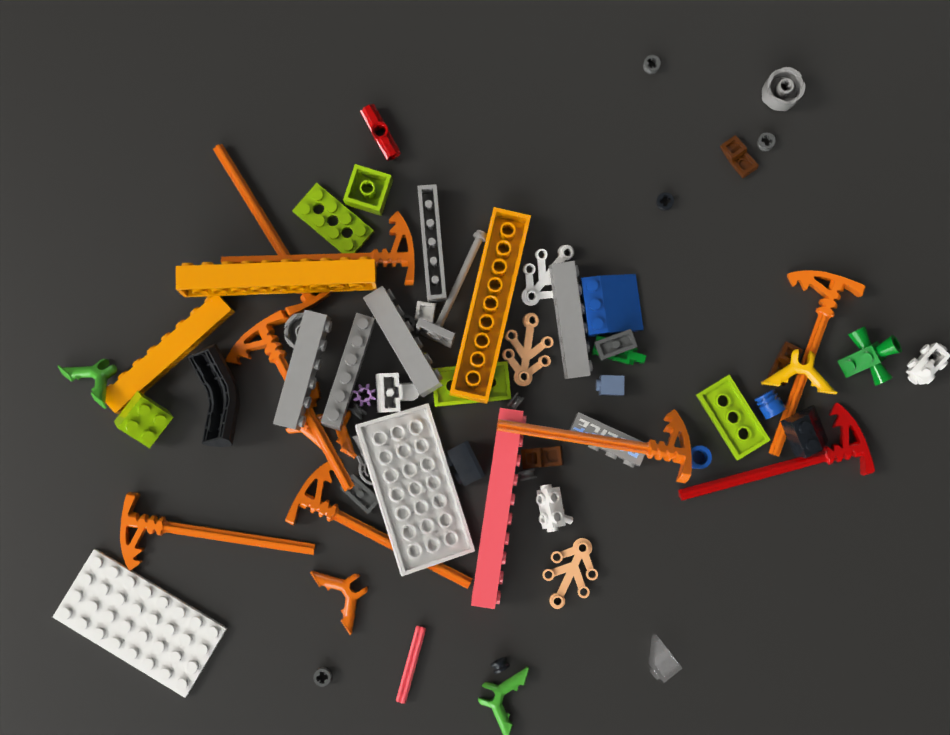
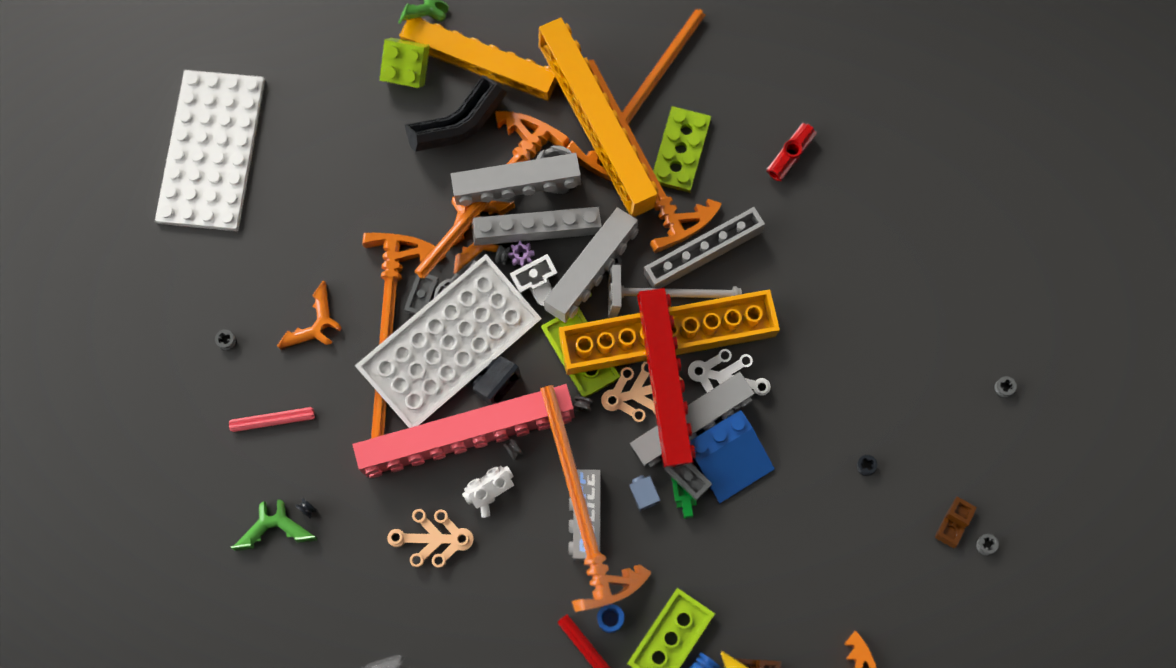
camera: 70 degrees right, 10 degrees down
(161, 526) = (310, 125): orange piece -> none
(368, 190) = (727, 165): lime brick -> none
(425, 311) = (633, 276): white tile -> none
(531, 325) = (664, 377): none -> red brick
(542, 457) = (538, 457): reddish brown slope -> none
(793, 86) = (1057, 523): light grey brick -> none

